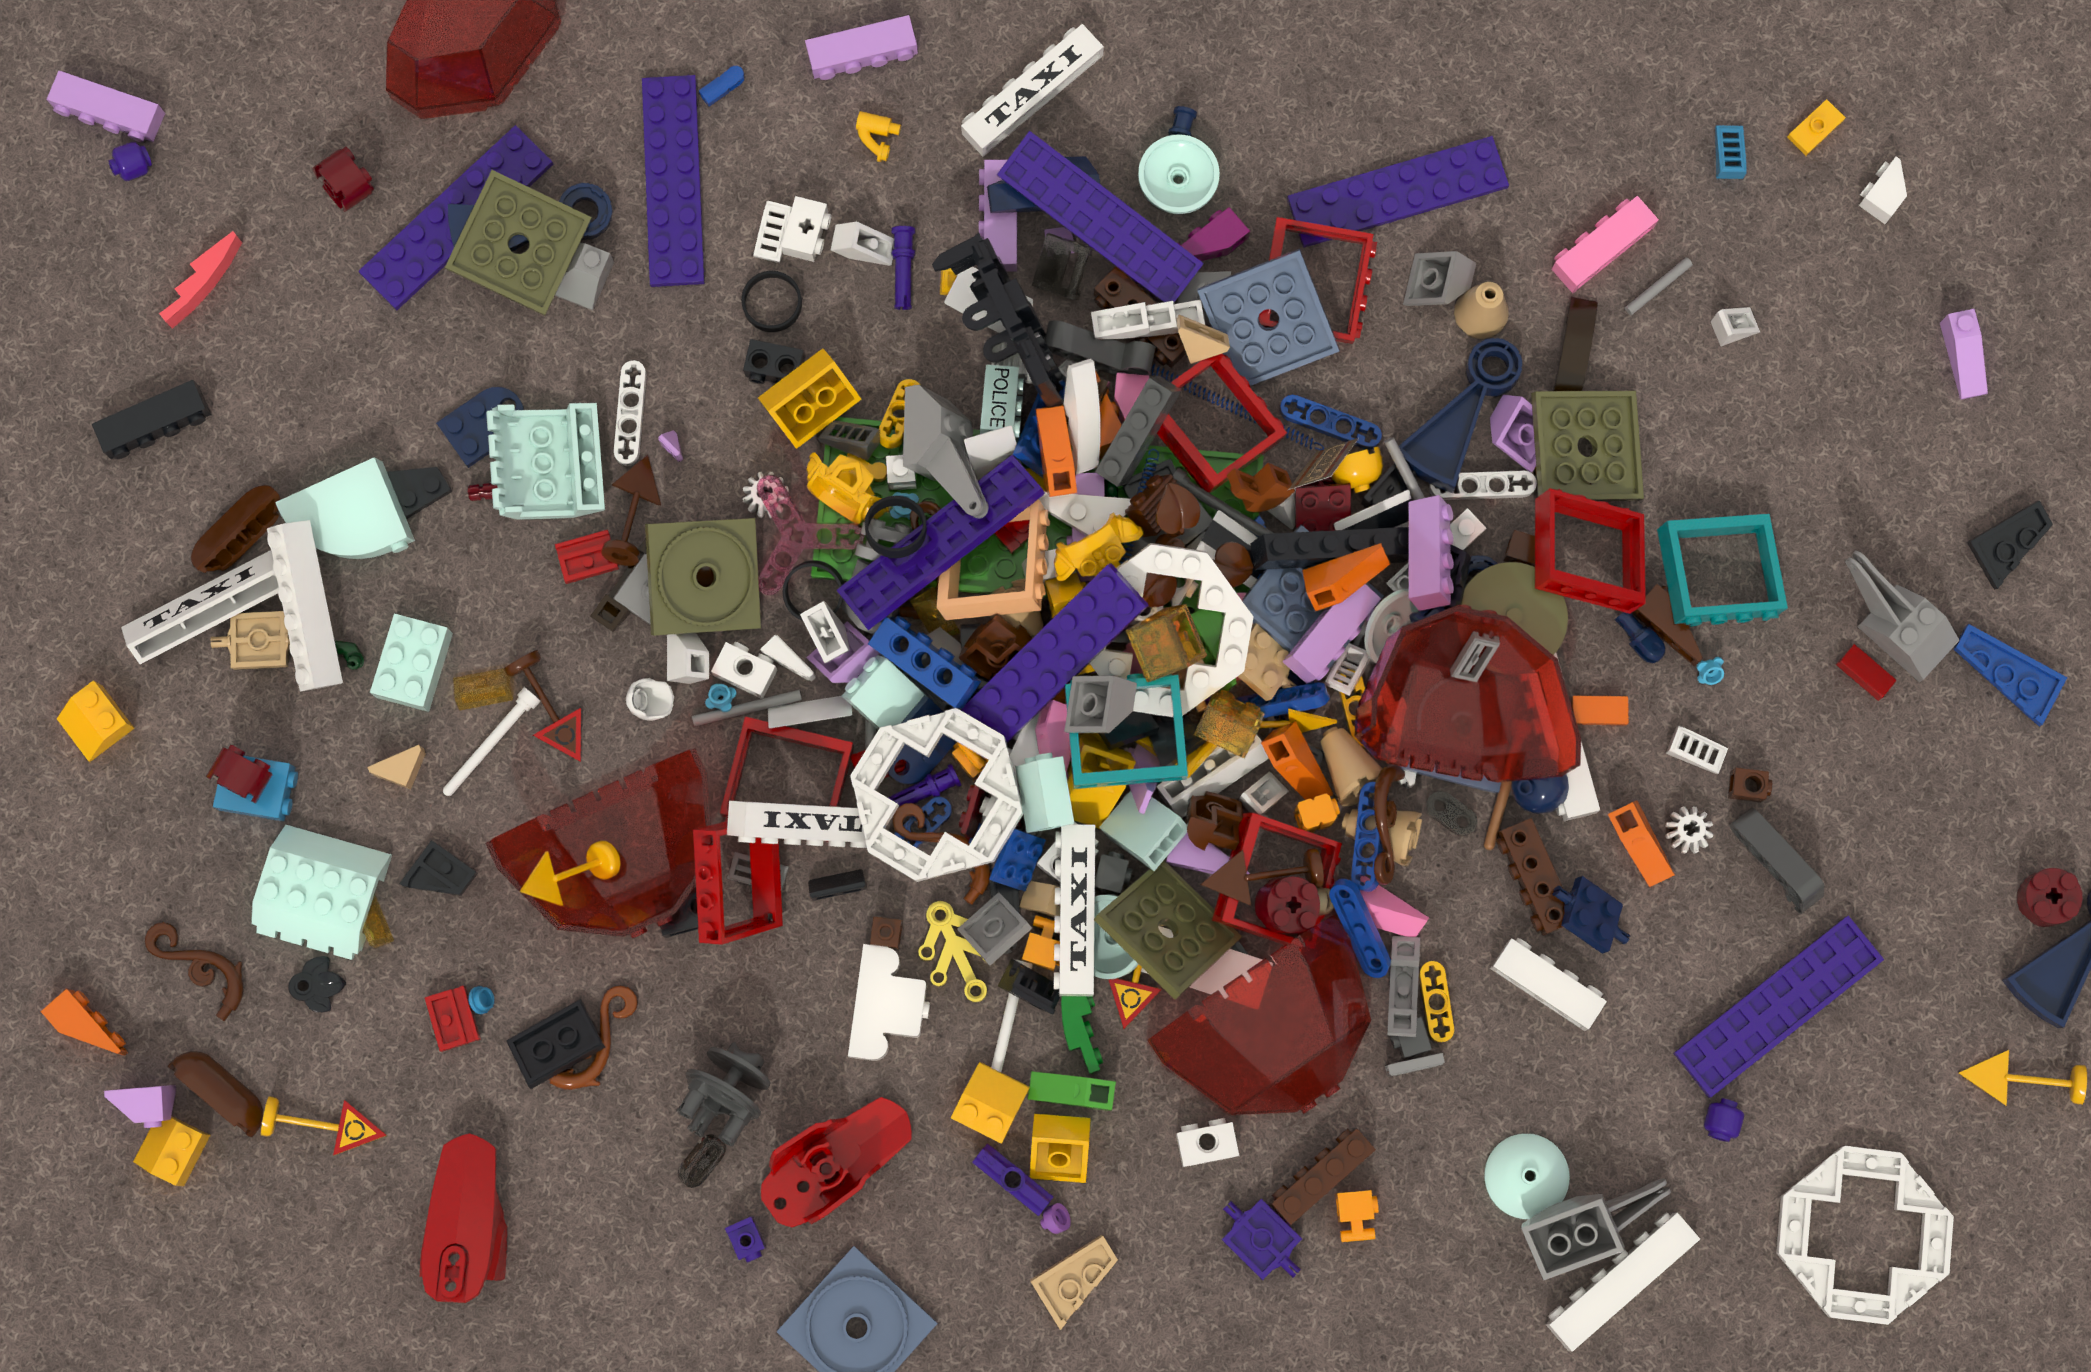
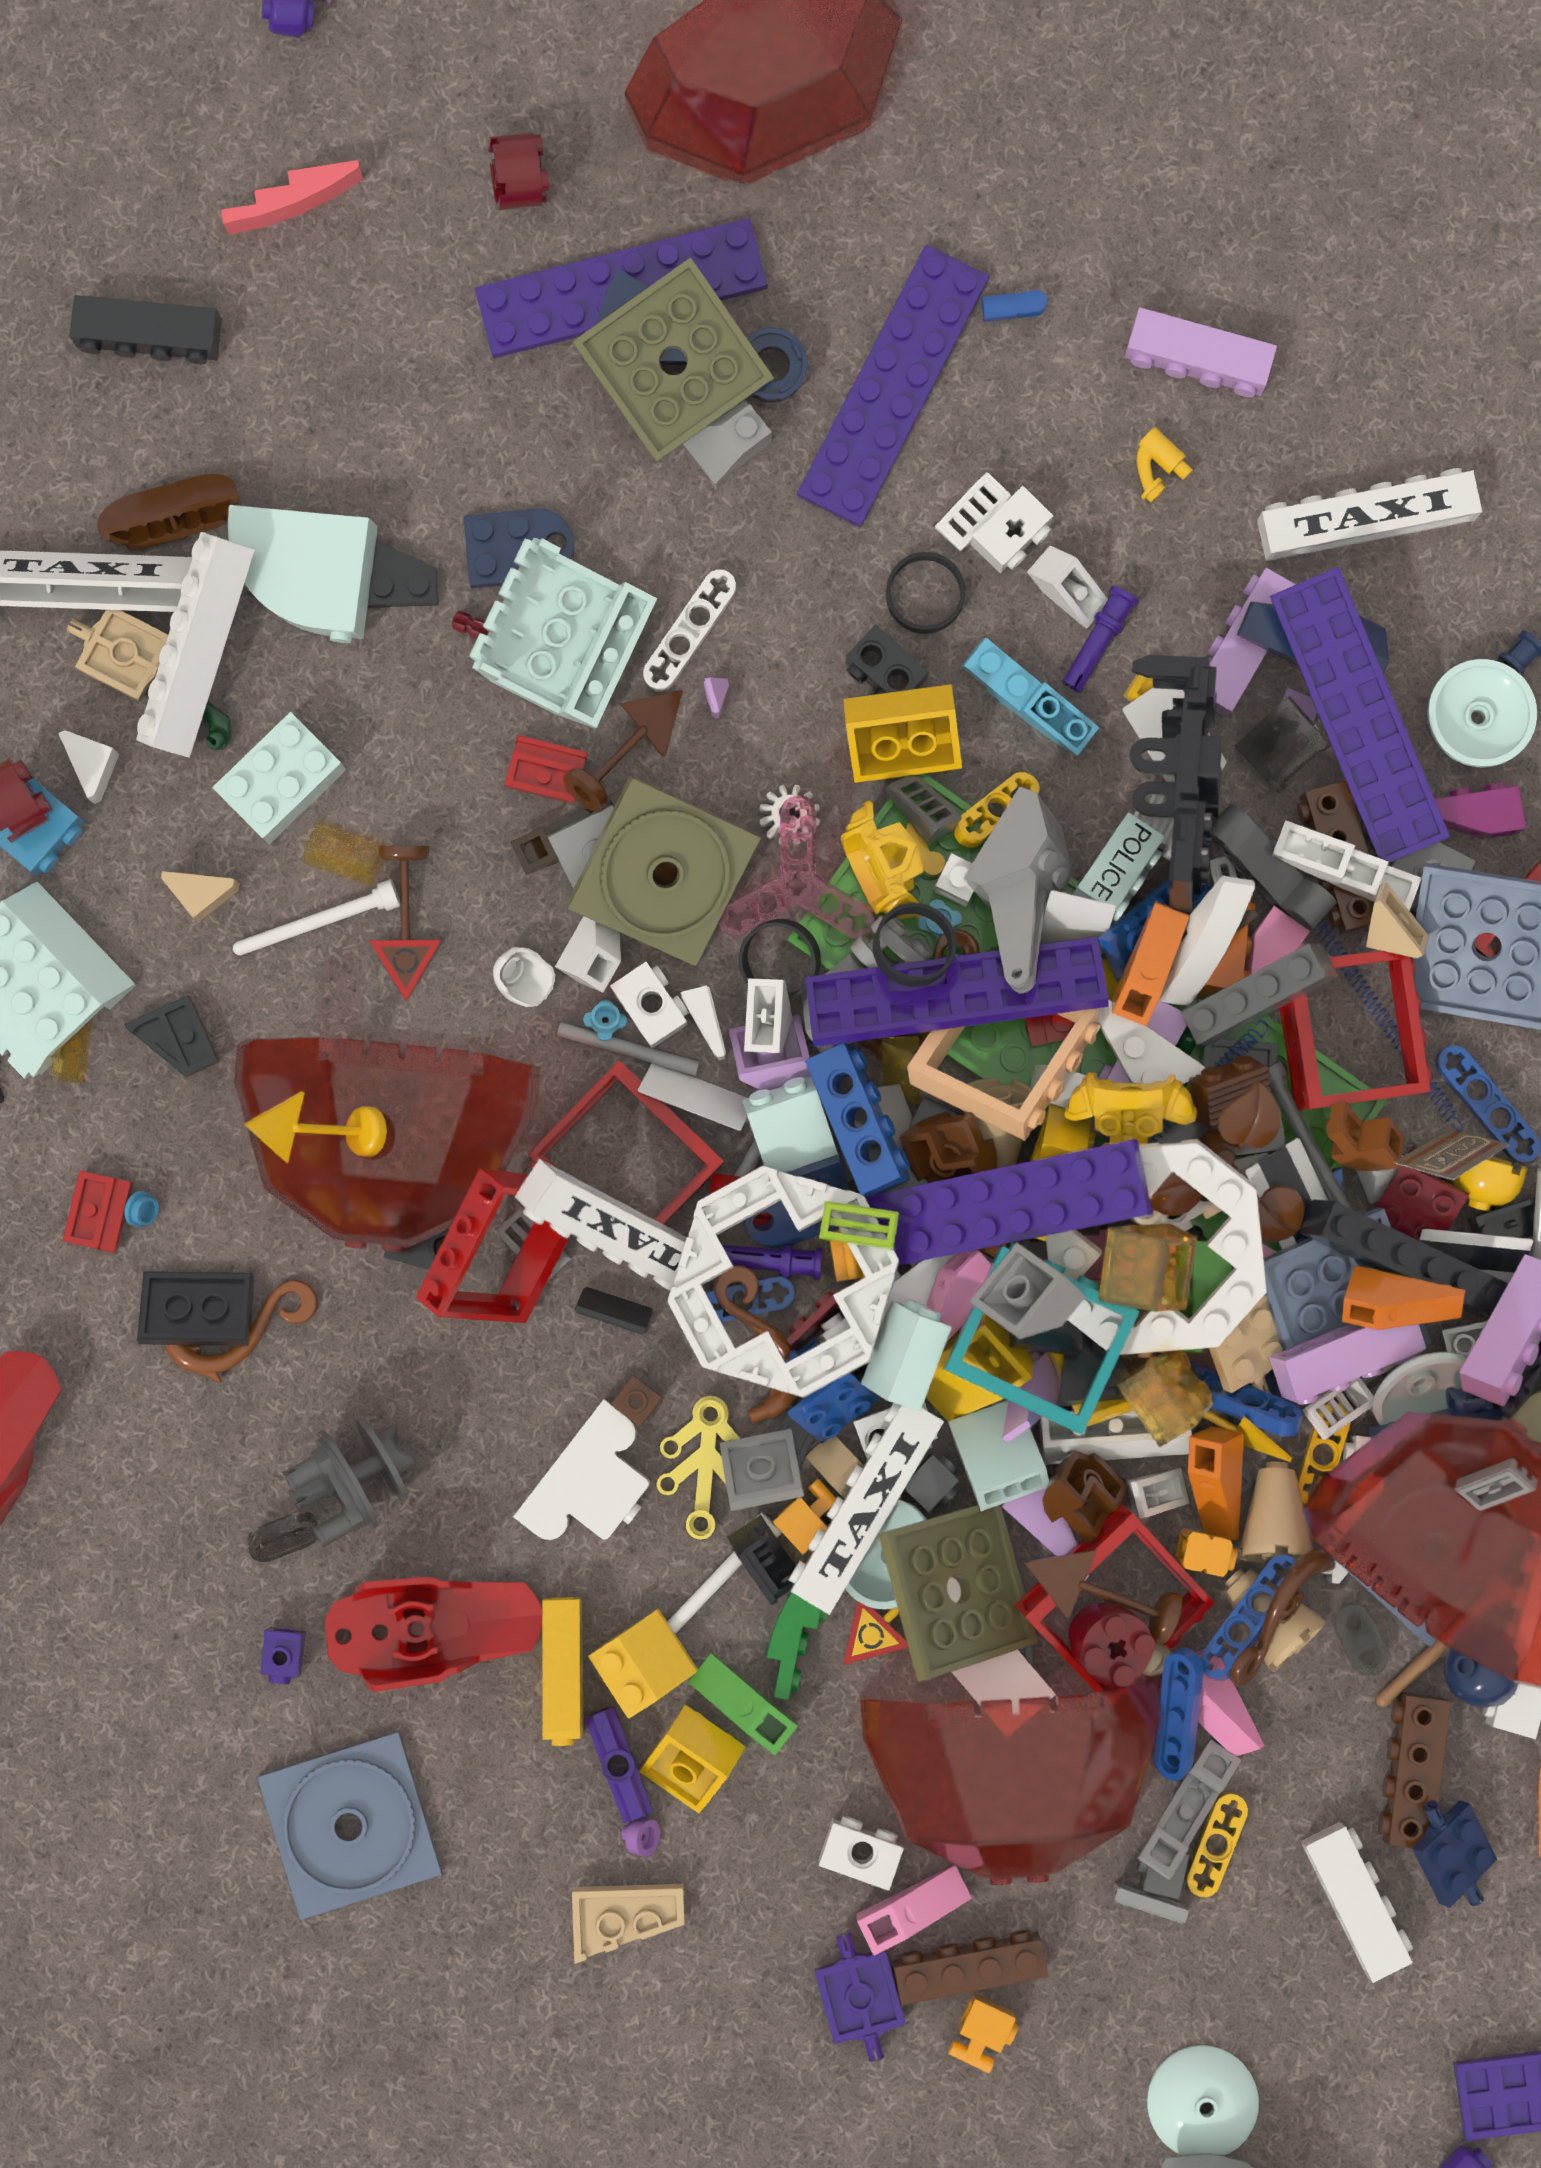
camera: 30 degrees right, 5 degrees up
(278, 723) = (91, 762): none -> white slope
(879, 331) = (1029, 698): none -> medium azure slope
(939, 1137) = (562, 1670): none -> yellow slope
(968, 738) = (854, 1239): none -> lime tile
(1262, 1159) = (912, 1909): none -> bright pink slope

